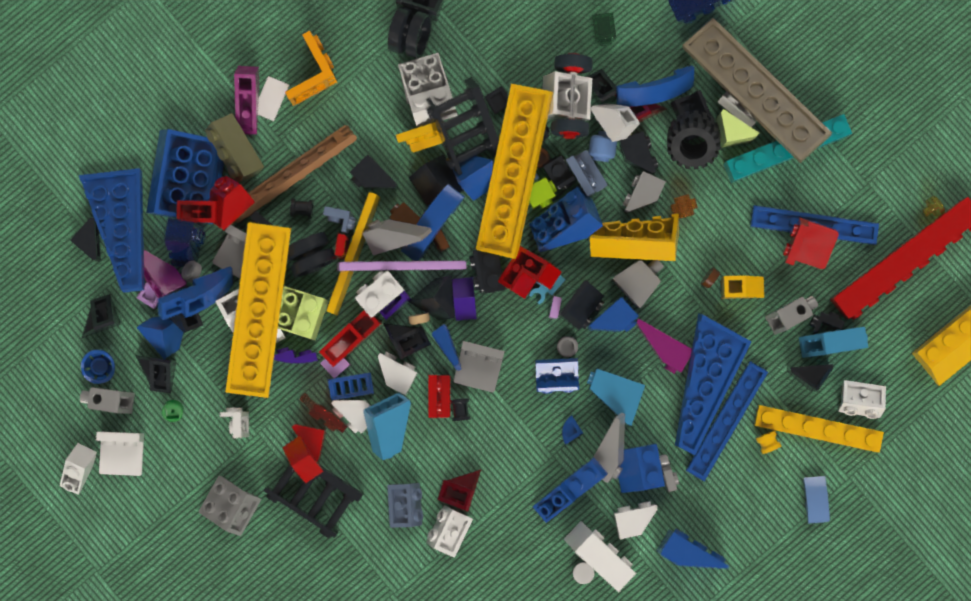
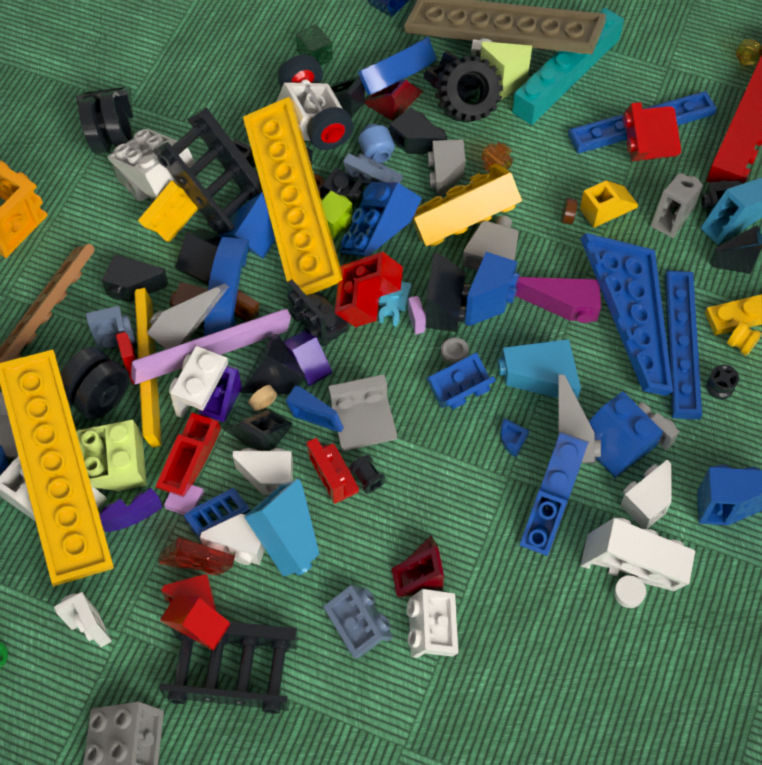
camera: 30 degrees left, 25 degrees down
(301, 208) = (67, 340): black bush -> none
(616, 120) = (377, 101): white slope -> none
(737, 465) = (723, 374): none -> black wheel

